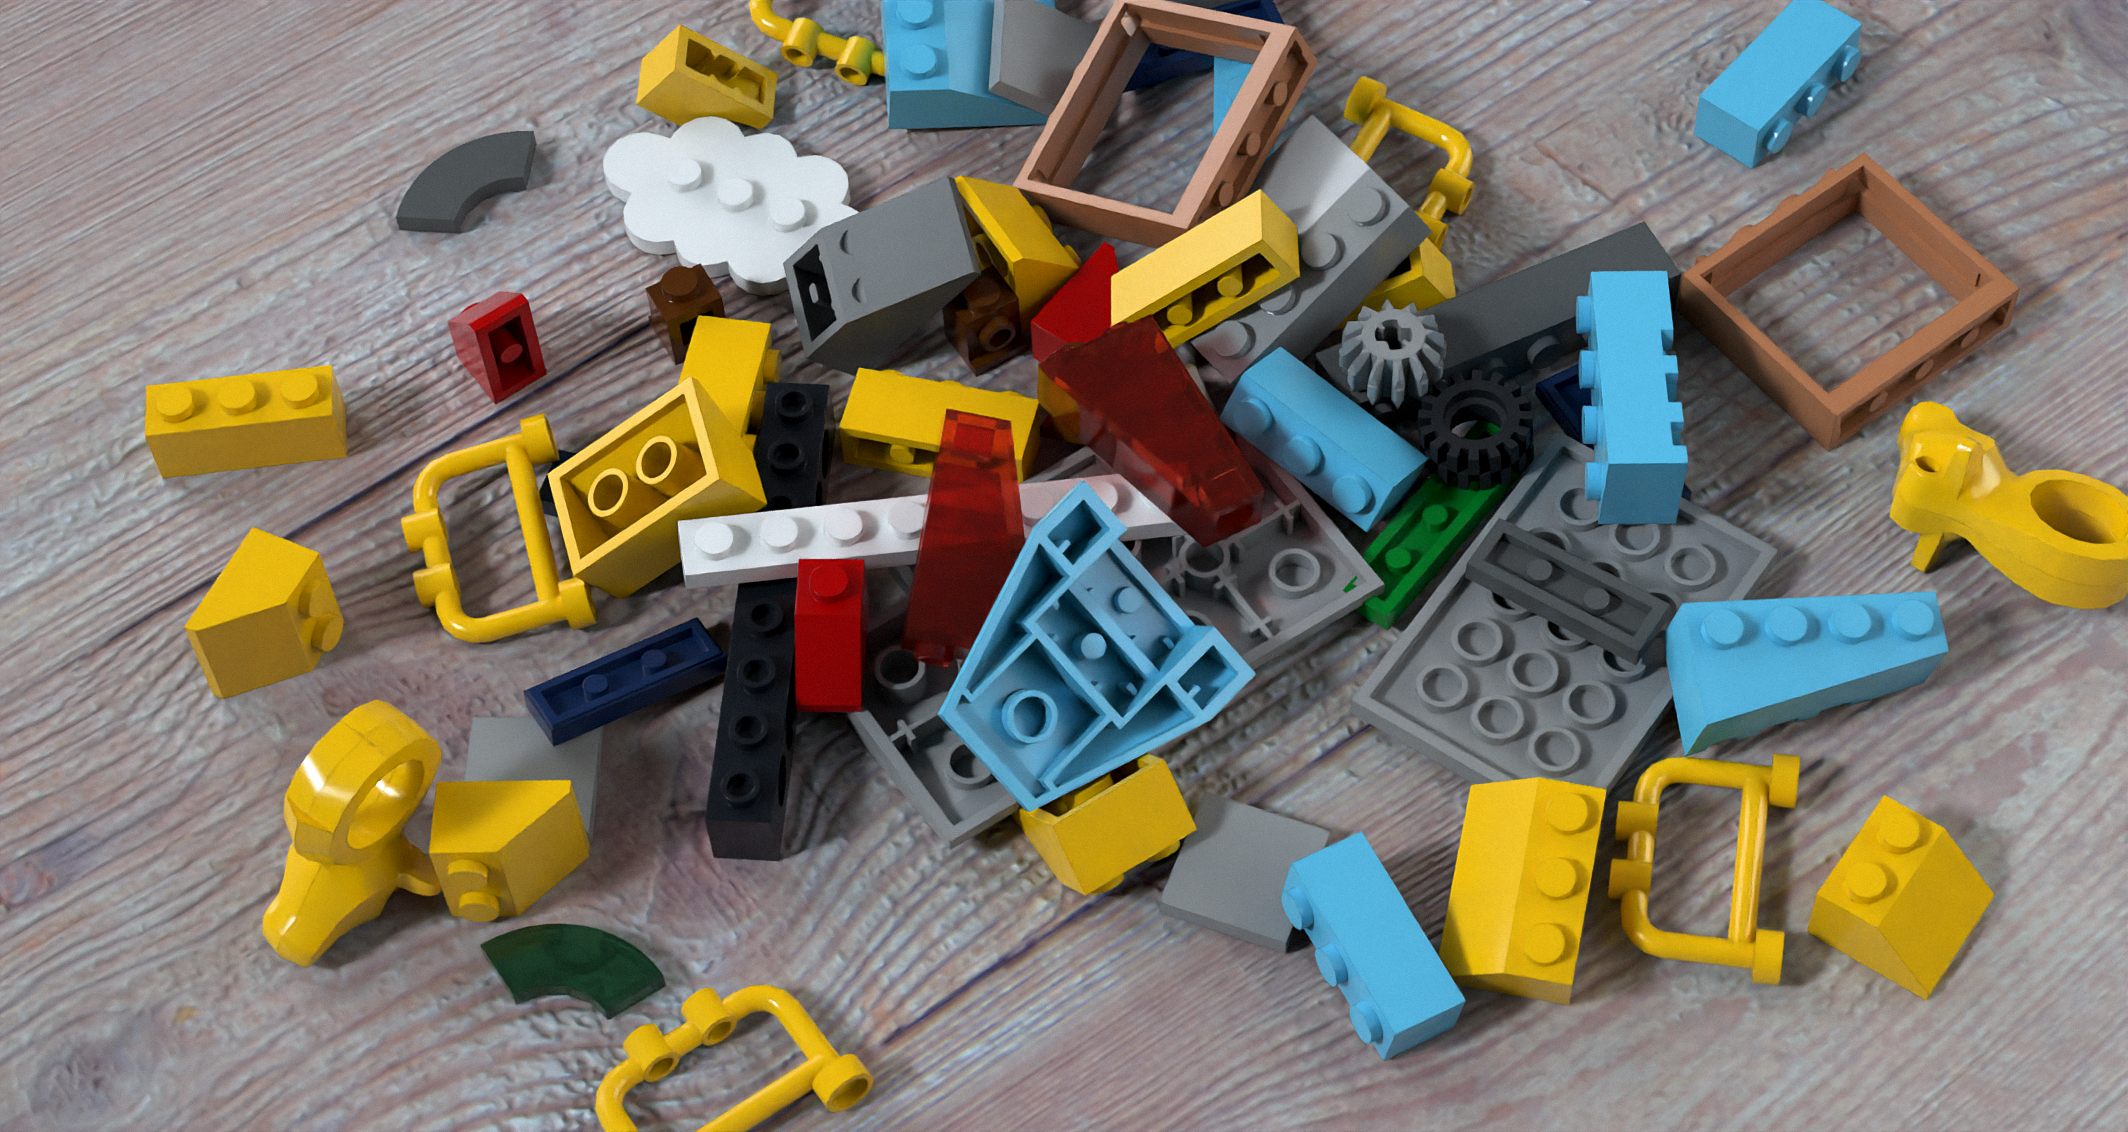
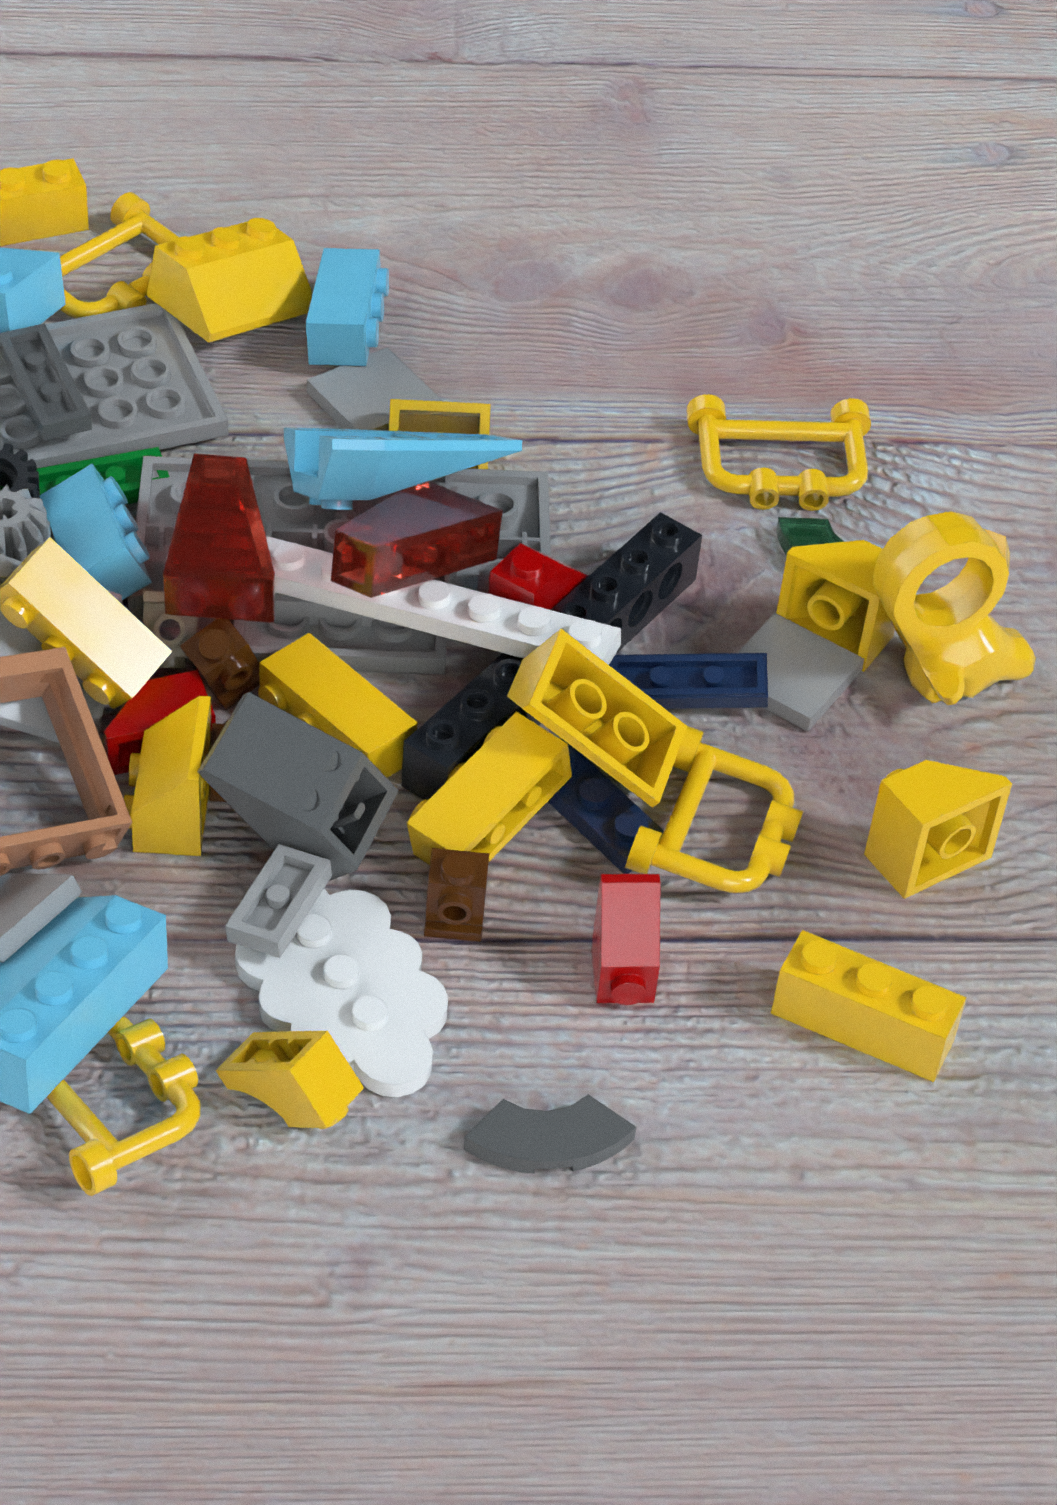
camera: 155 degrees left, 10 degrees down
(824, 186) = (278, 901): none -> light grey plate

